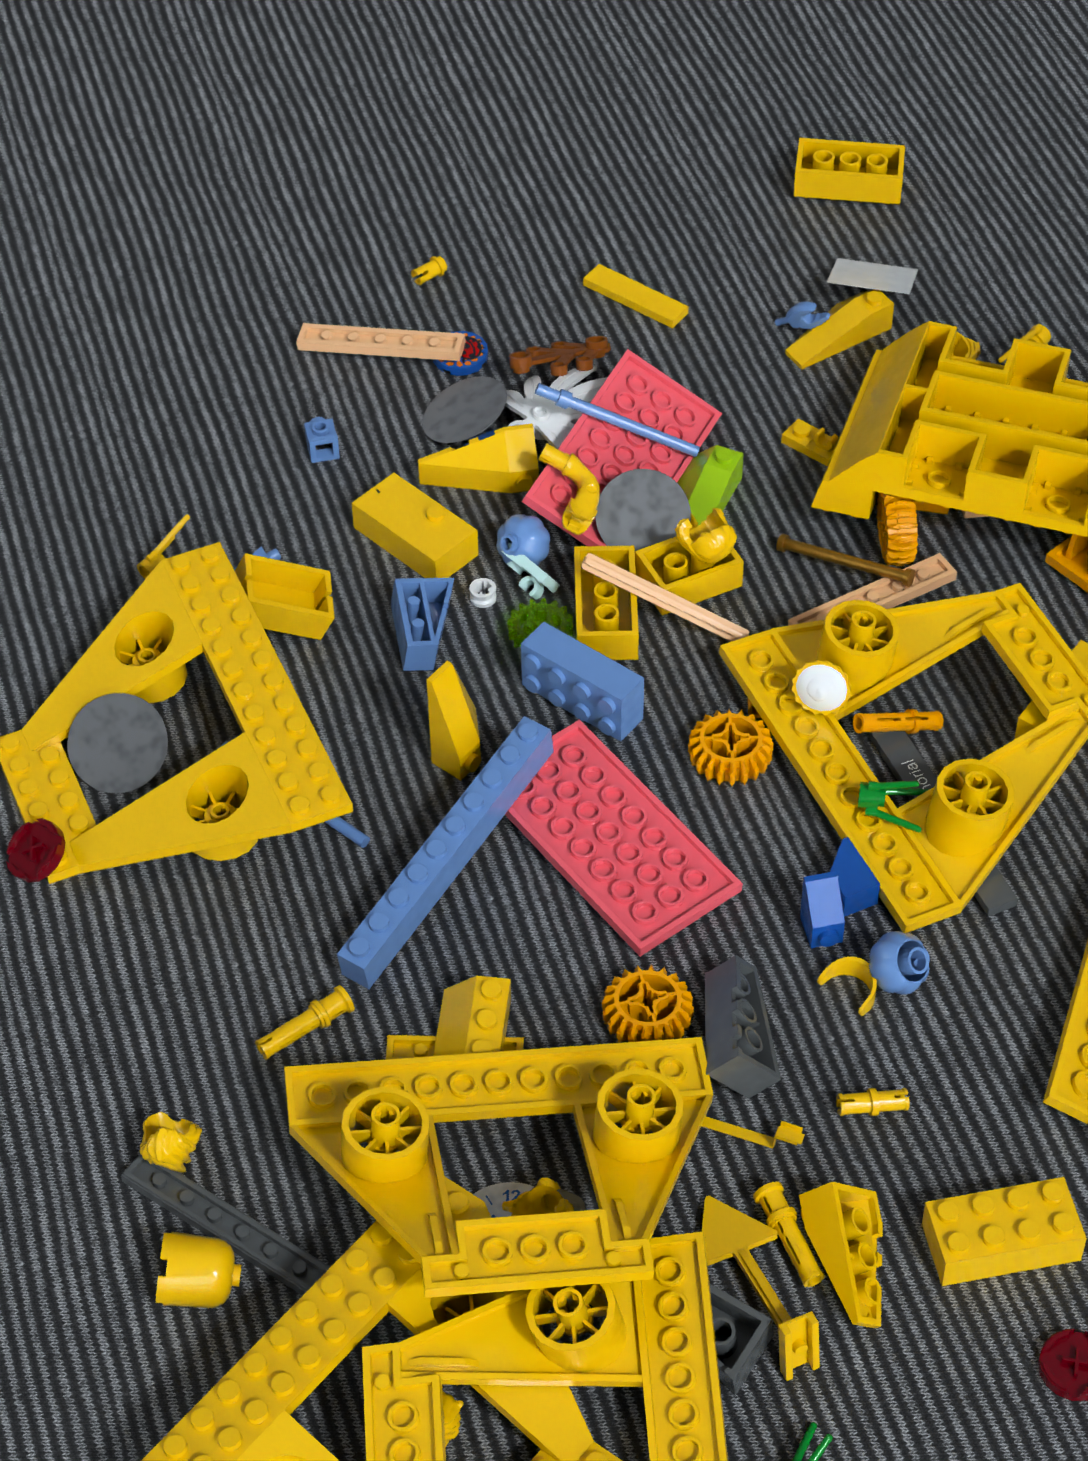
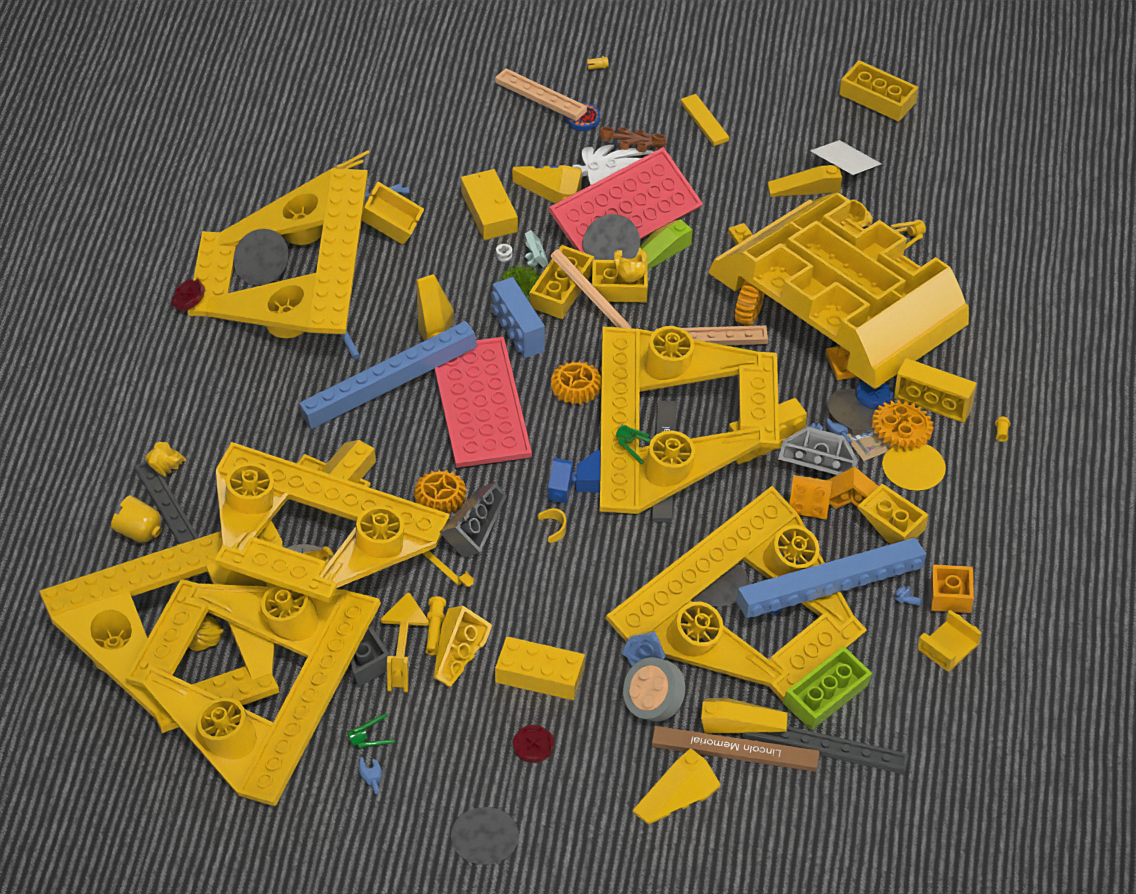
camera: 25 degrees right, 0 degrees up
(317, 1015) = (275, 430): yellow pin -> none
(320, 432) = (475, 133): medium blue brick -> none
(419, 619) = (459, 253): medium blue wedge -> none
(464, 409) = (560, 149): flat silver sticker -> none
(526, 536) = (542, 231): medium blue plant -> none
(565, 399) = (604, 161): medium blue bar -> none
(582, 508) = (576, 226): yellow piece -> none
(801, 316) = (785, 165): medium blue hand -> none
(821, 687) = (636, 367): white piece -> none
(872, 1102) = (521, 583): yellow pin -> none
(899, 962) = (581, 522): medium blue plant -> none
(905, 576) = (734, 330): pearl gold bar -> none
(909, 721) = (673, 404): light orange pin -> none

